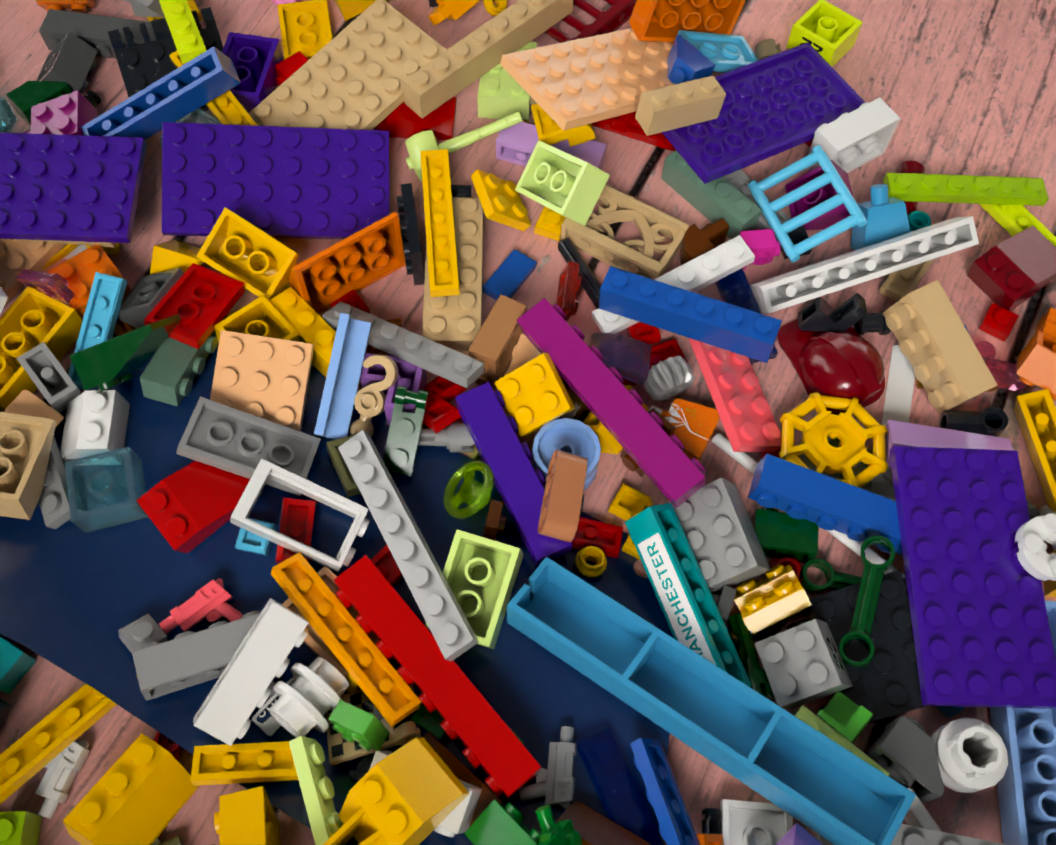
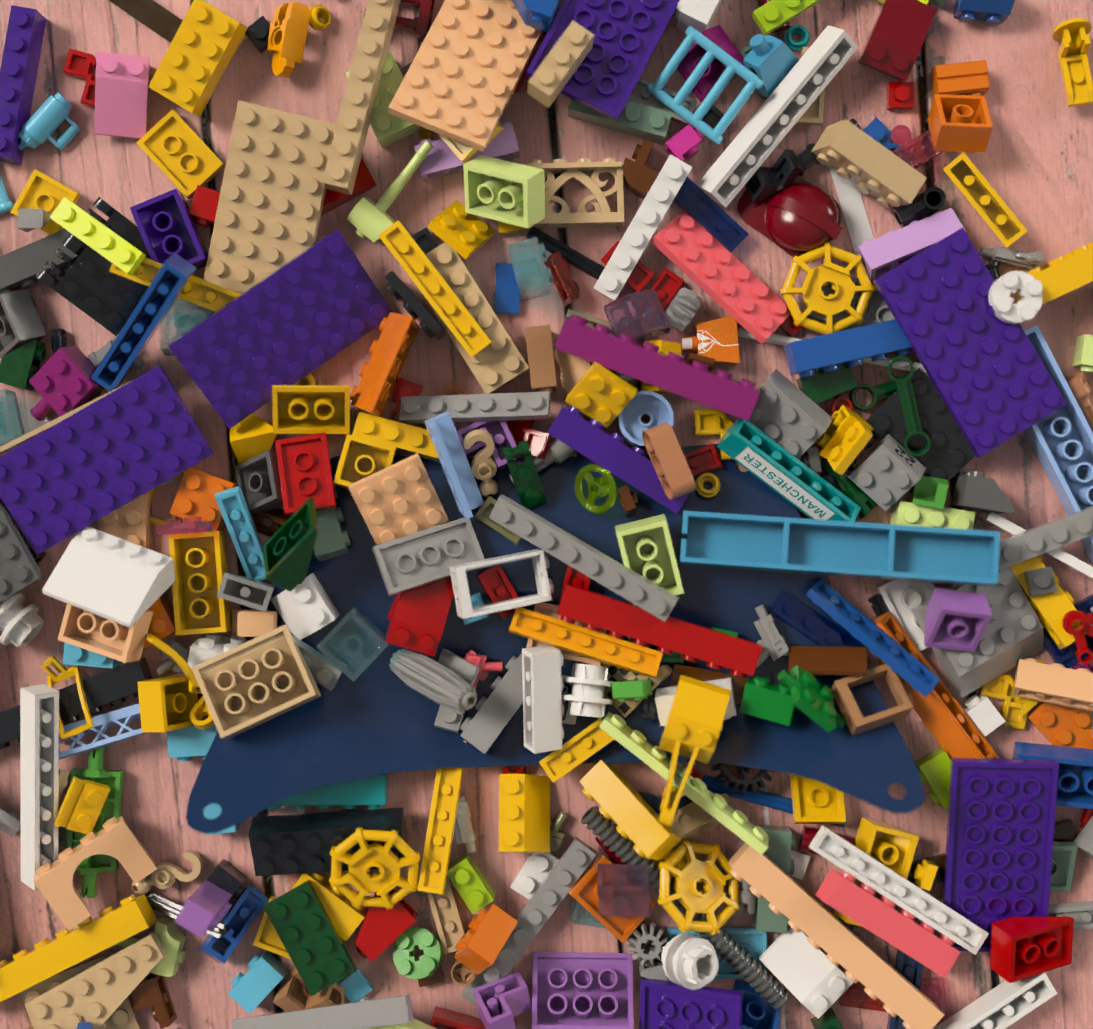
camera: 25 degrees left, 25 degrees up
(157, 581) = (444, 682): none -> light grey plate
(541, 261) = (529, 268): none -> clear light blue brick
(689, 314) = (673, 257): blue brick -> none
(970, 755) = (1033, 468): white piece -> none

